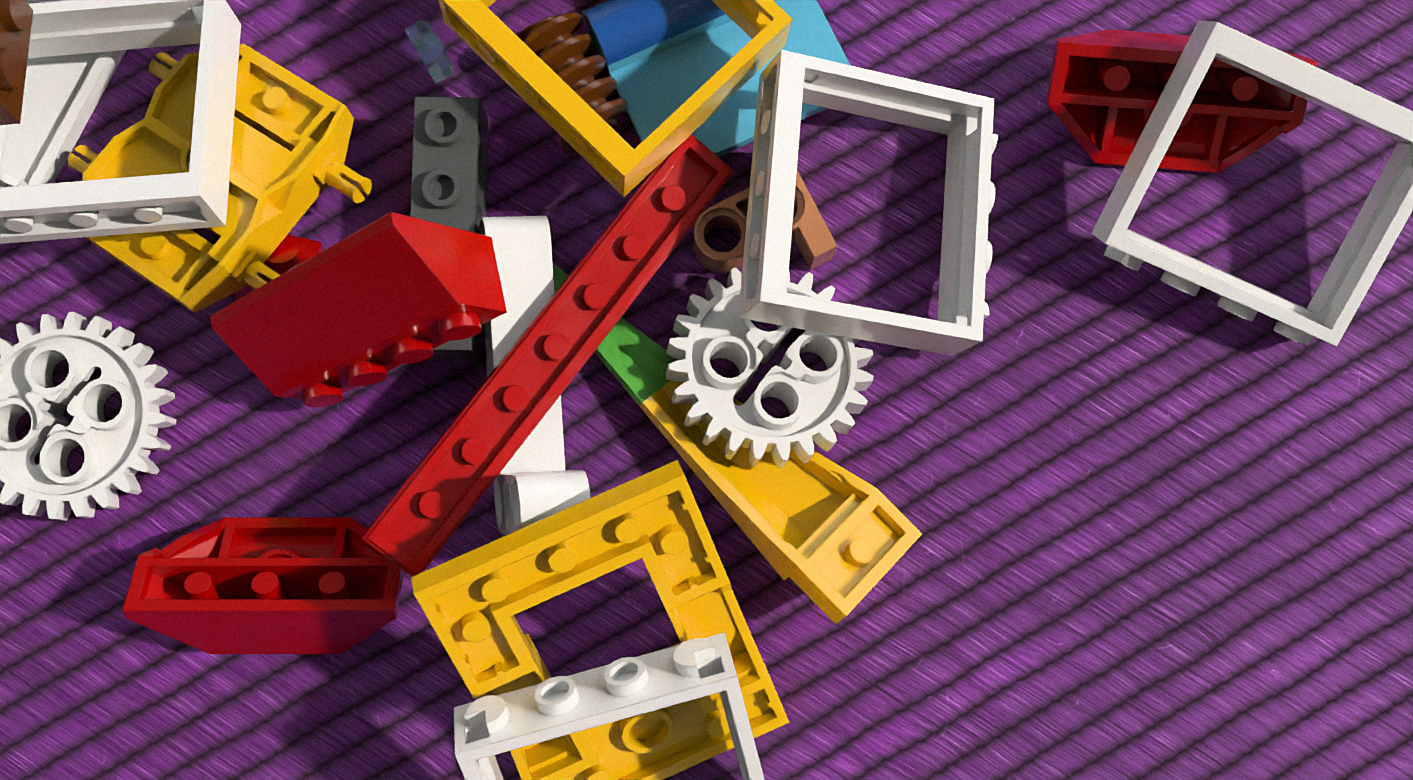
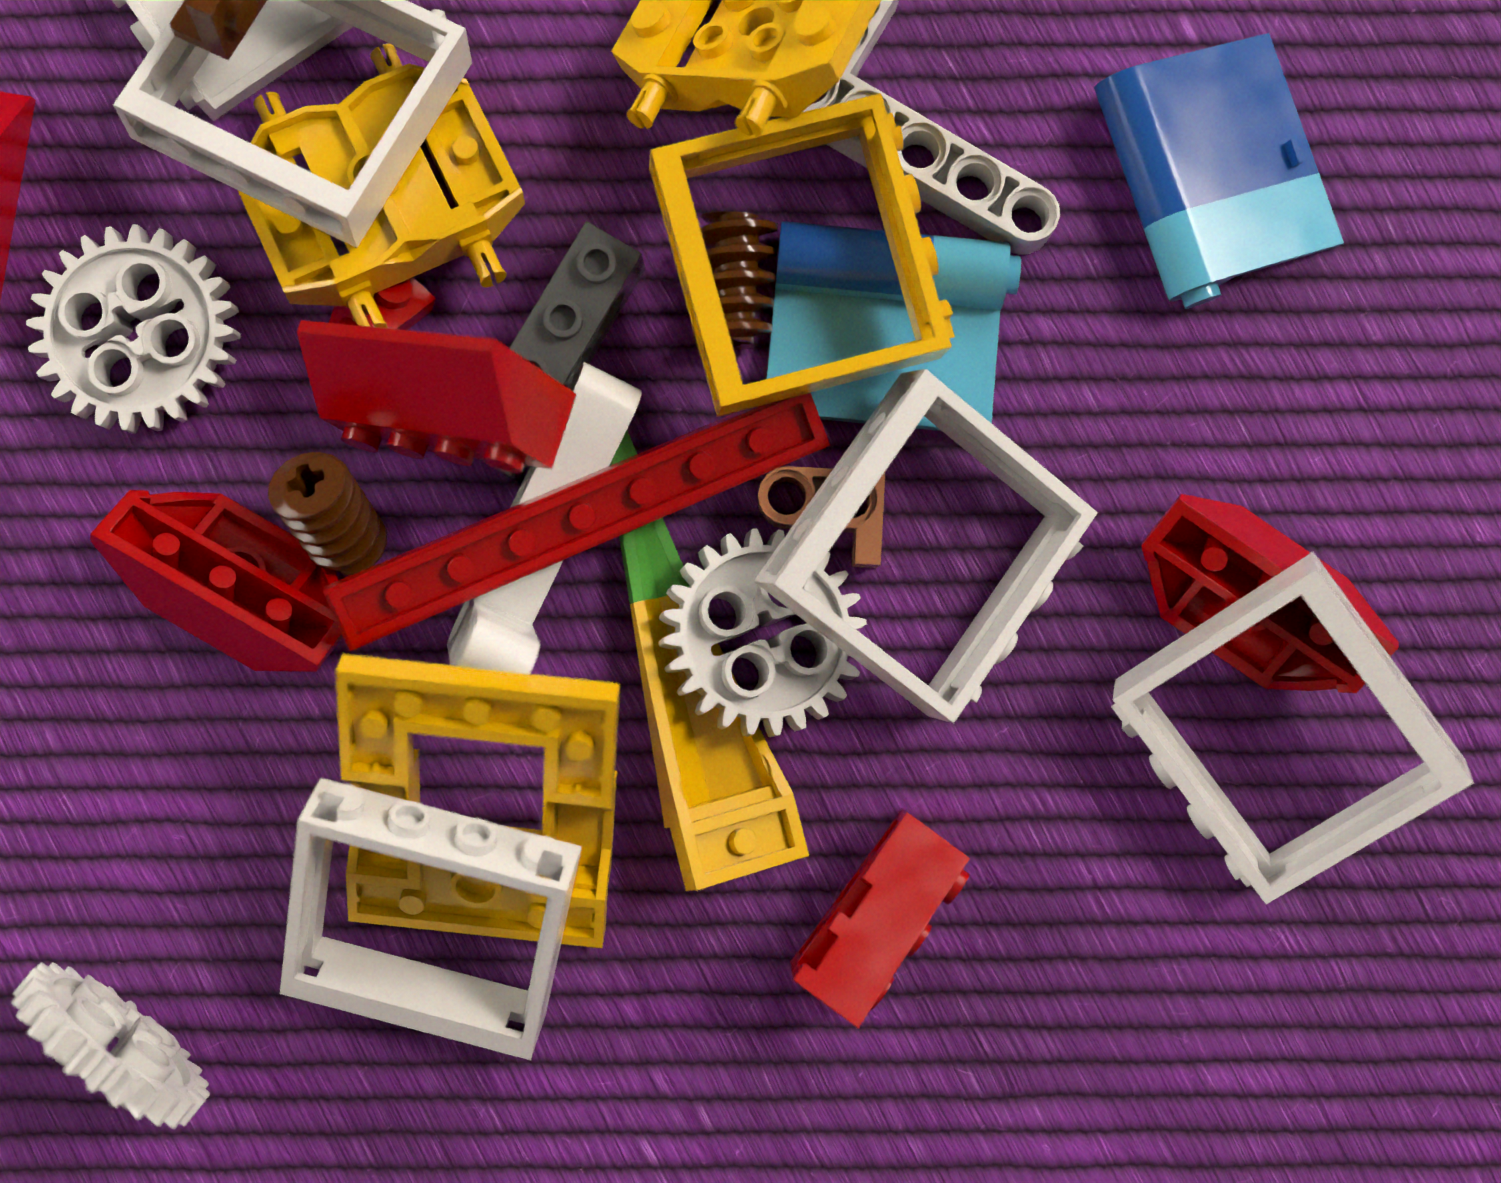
camera: 30 degrees right, 5 degrees up
(327, 473) = (328, 512): none -> reddish brown piece
(430, 50) = (627, 175): clear light blue tile -> none
(1016, 549) = (879, 918): none -> red wedge

